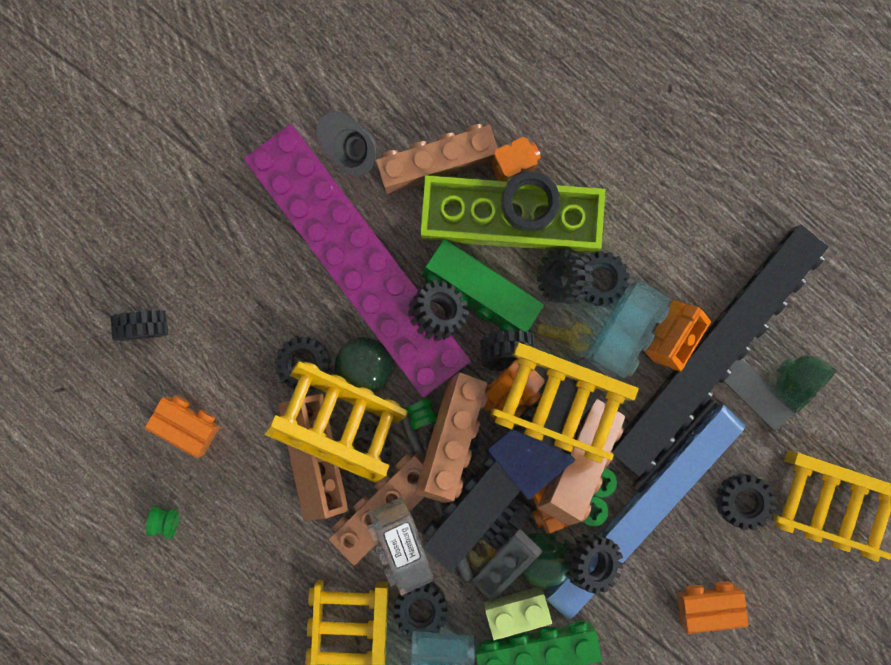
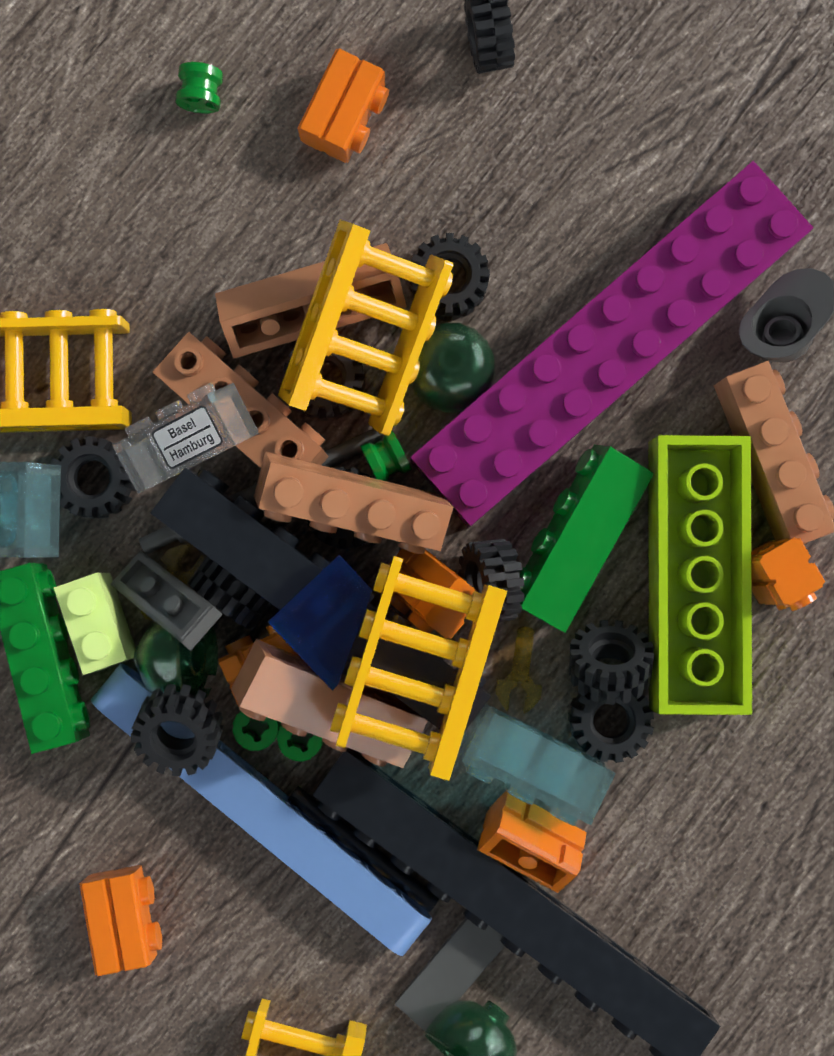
camera: 85 degrees right, 0 degrees up
(448, 301) = (560, 484): black tyre -> none
(537, 179) = (760, 598): black tyre -> none
(763, 502) = (279, 990): black tyre -> none

